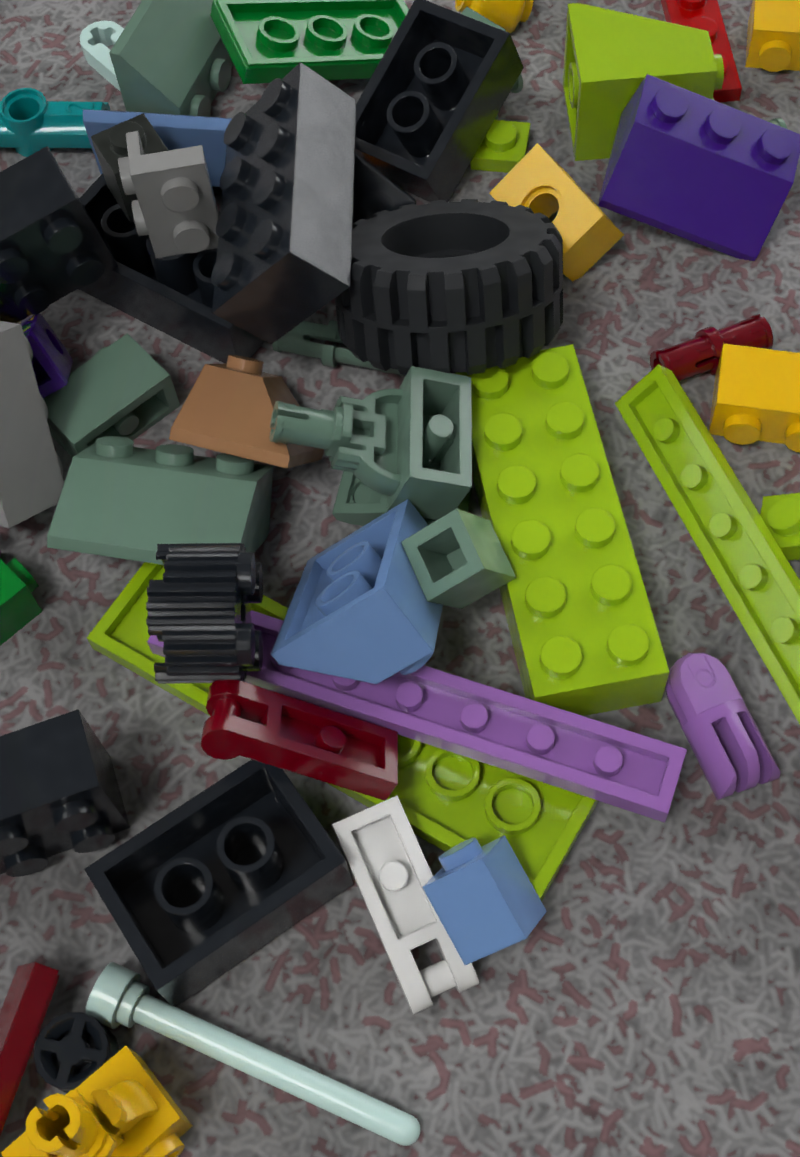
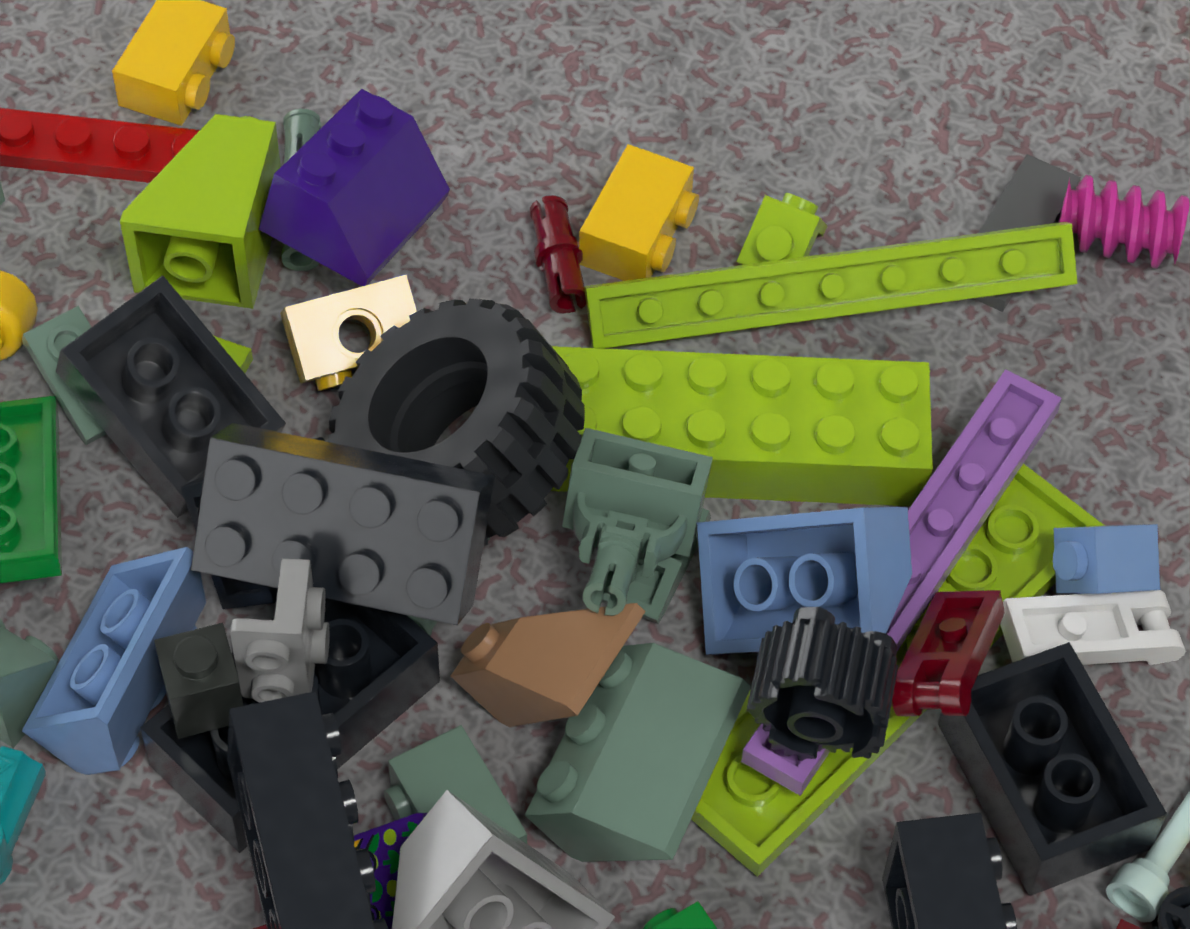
camera: 85 degrees left, 5 degrees down
(458, 559) = (795, 480): sand green brick -> none
(718, 725) = (968, 354): medium lavender arm -> none

